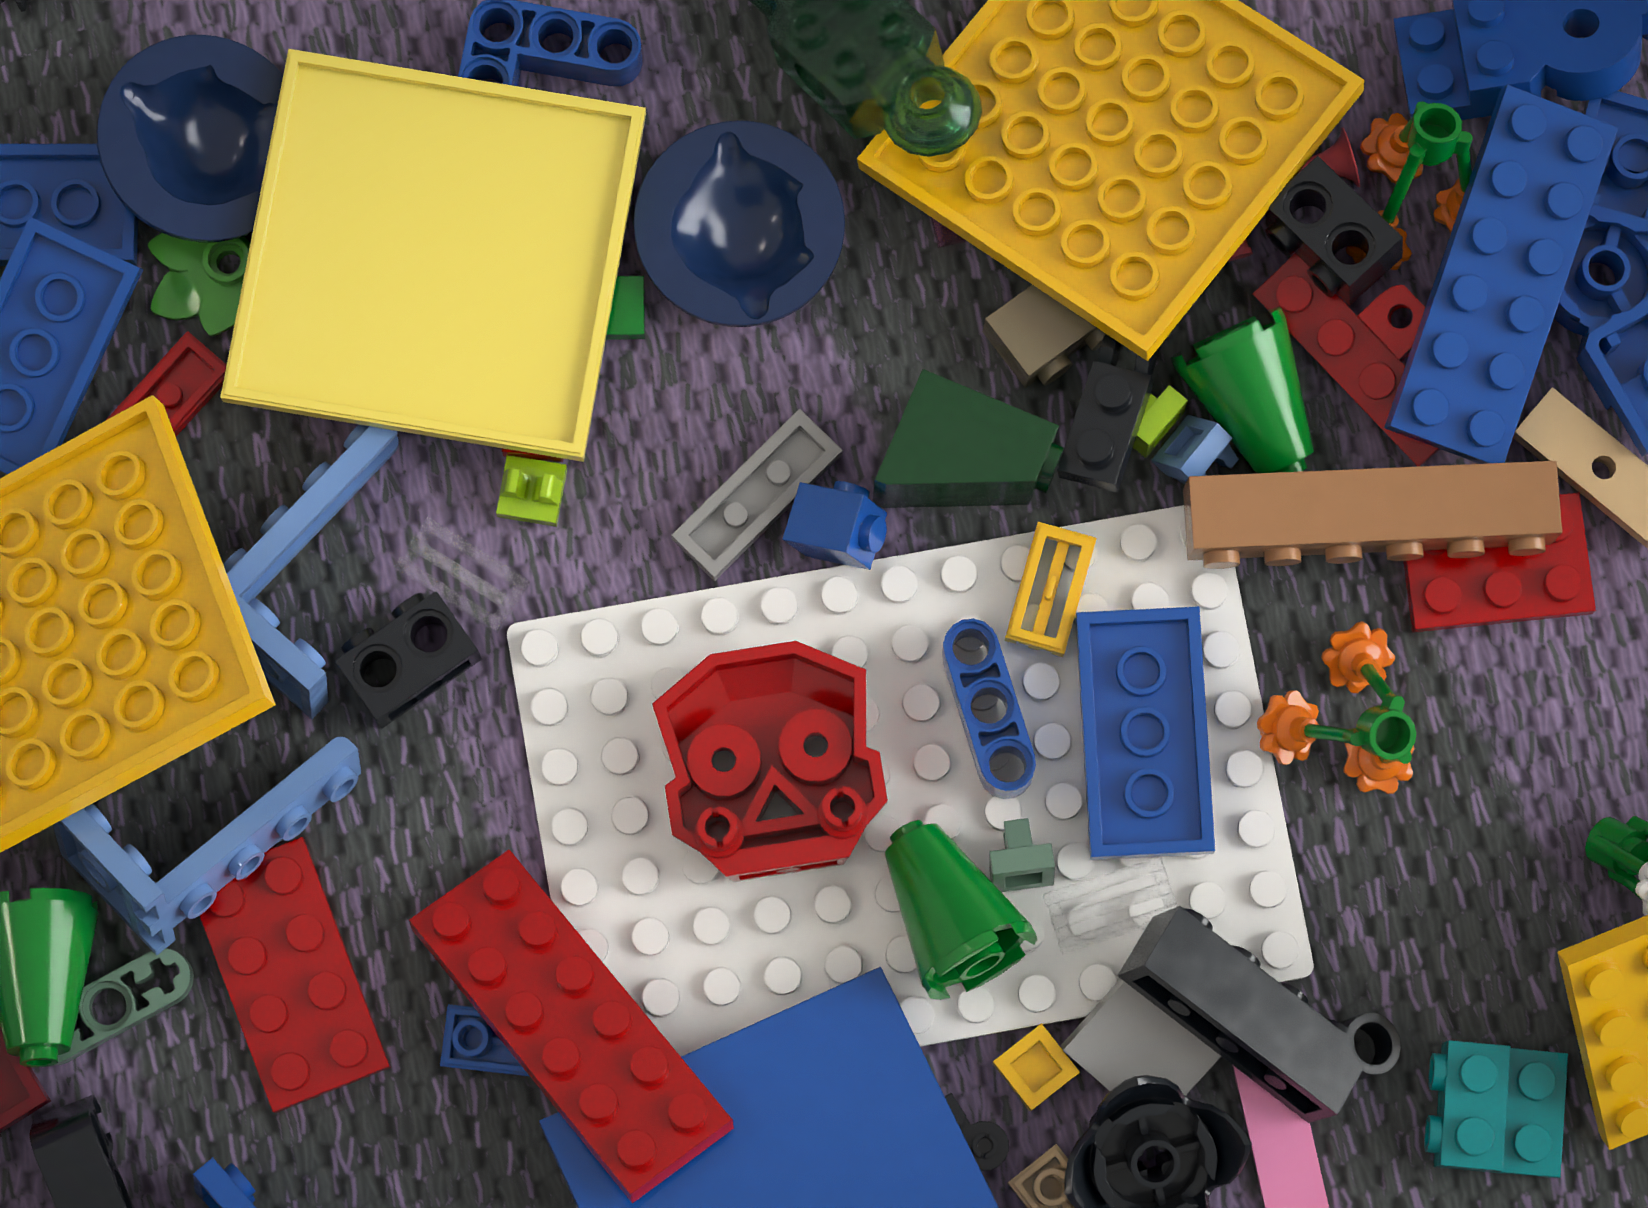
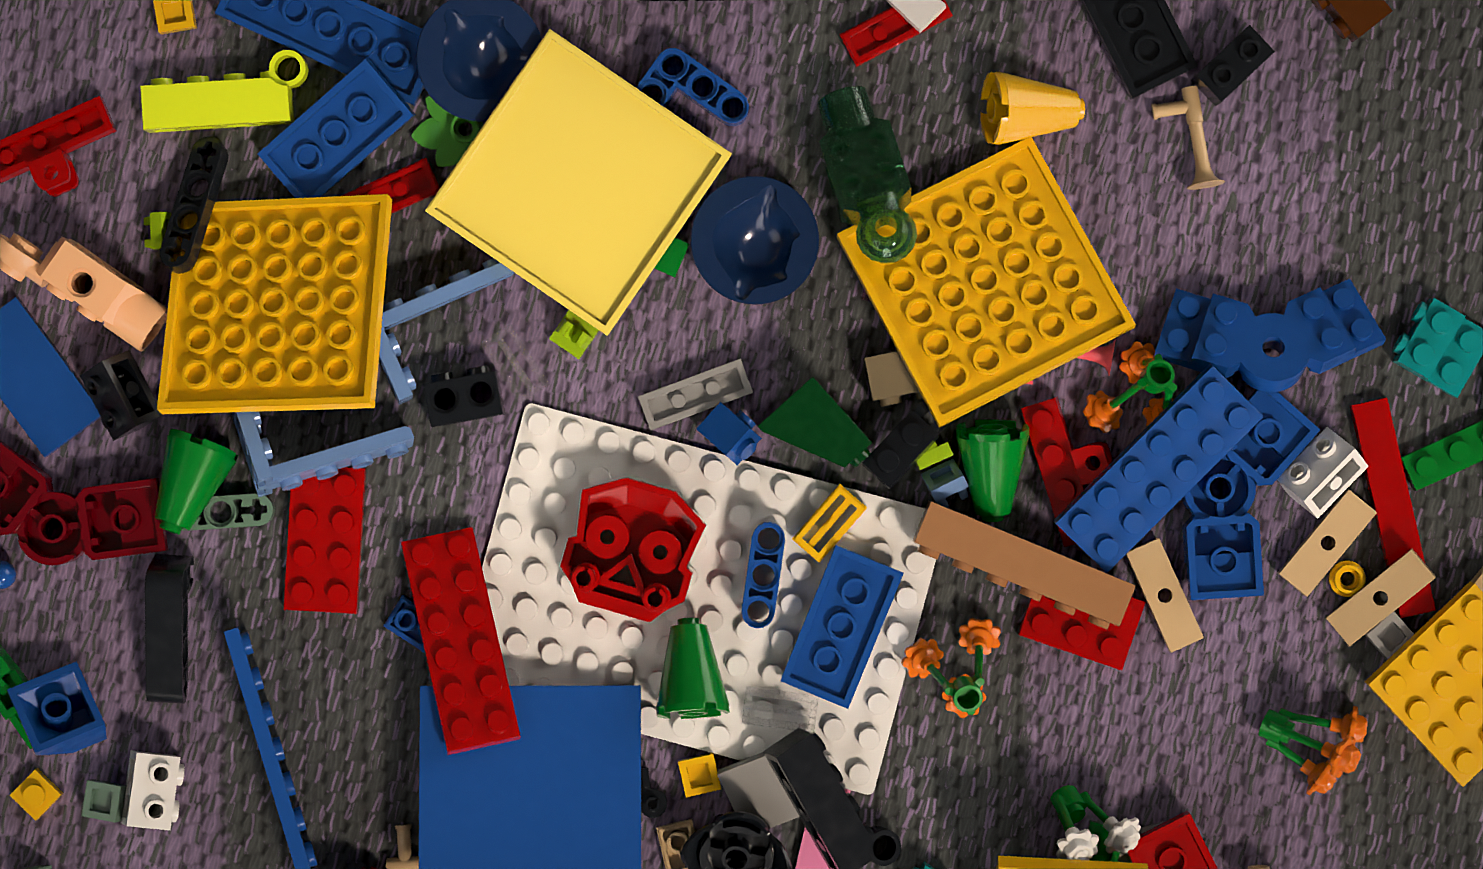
camera: 30 degrees right, 10 degrees up
(1021, 862) = (741, 665): sand green tile -> none
(1345, 223) = (1086, 397): black brick -> none

